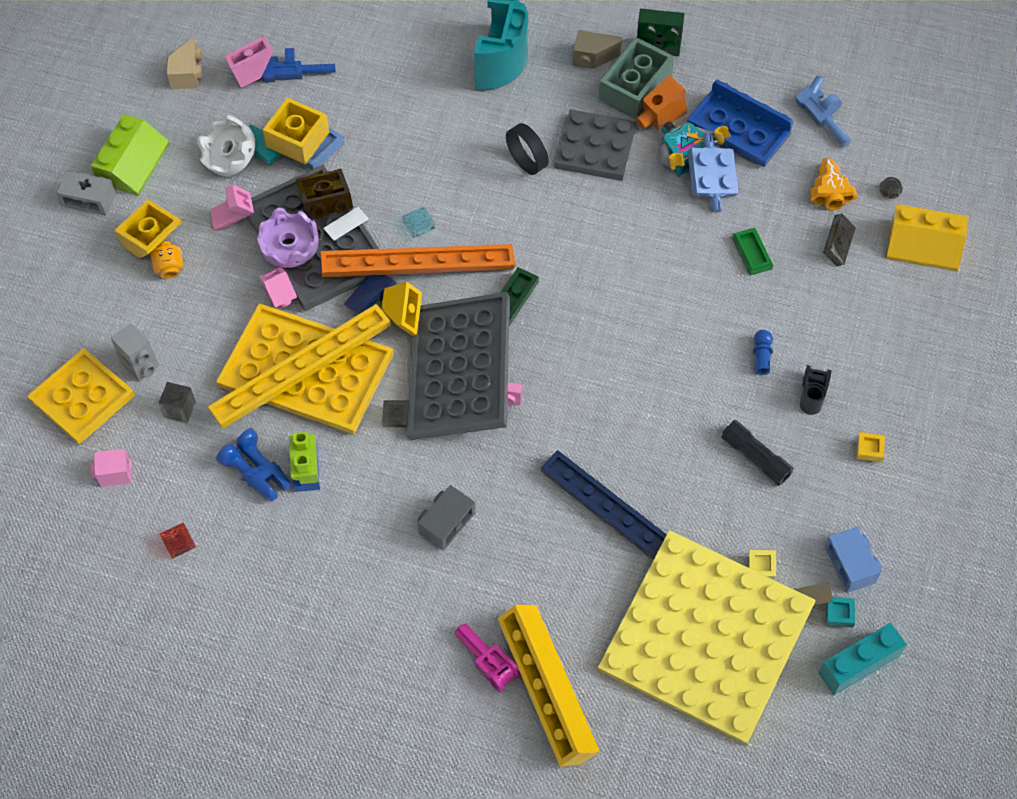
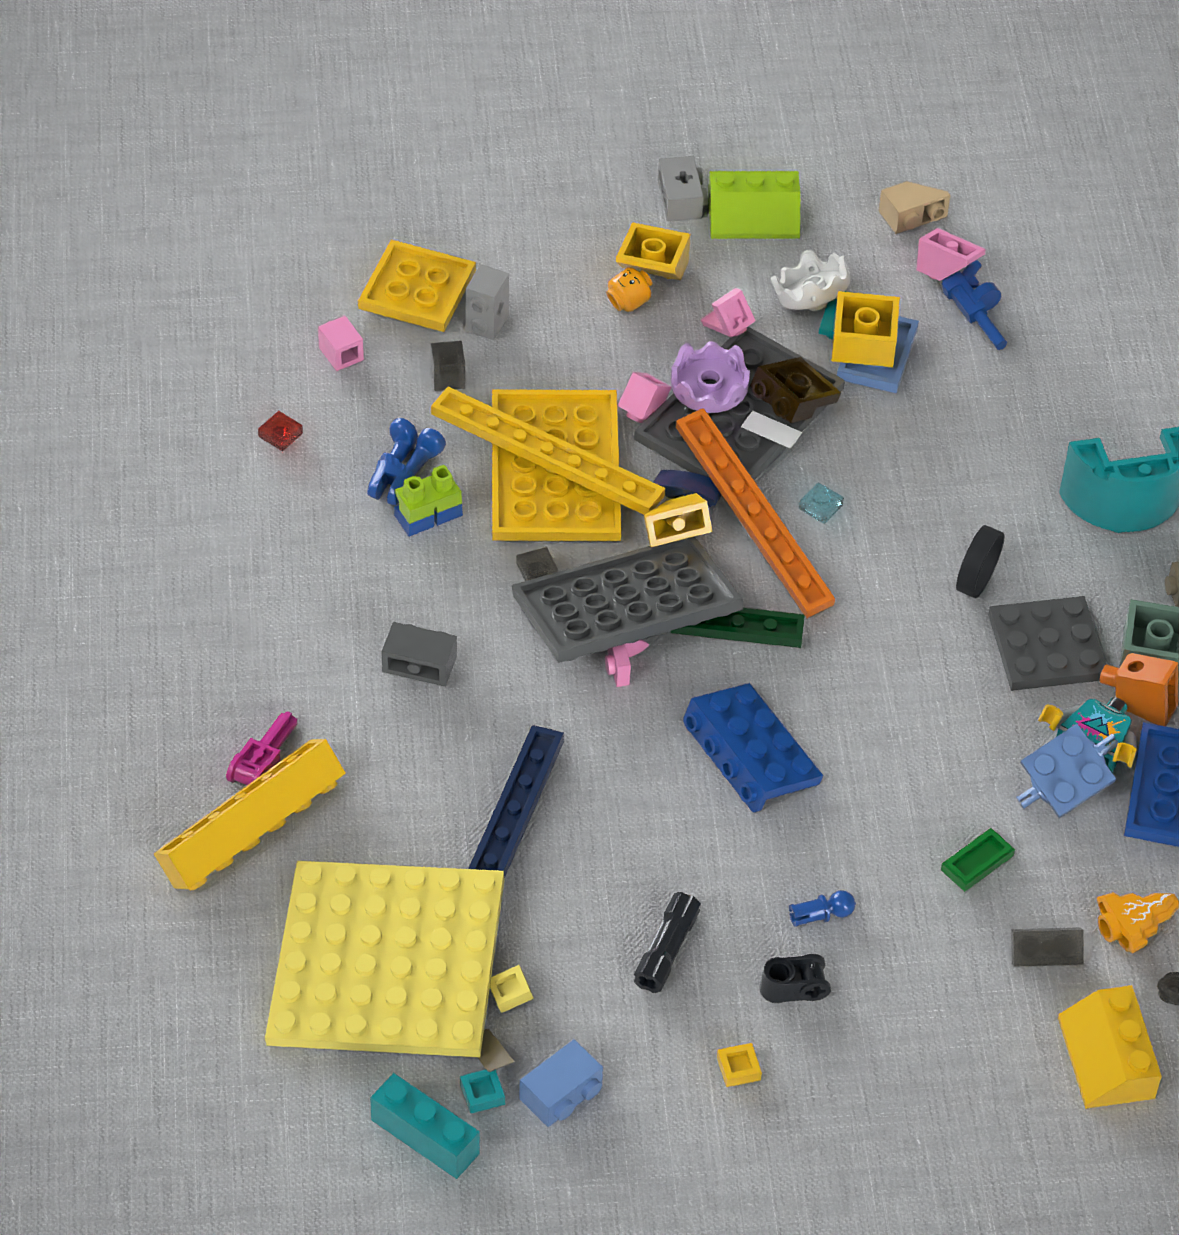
camera: 65 degrees right, 10 degrees down
(612, 342) = (749, 745): none -> blue bracket

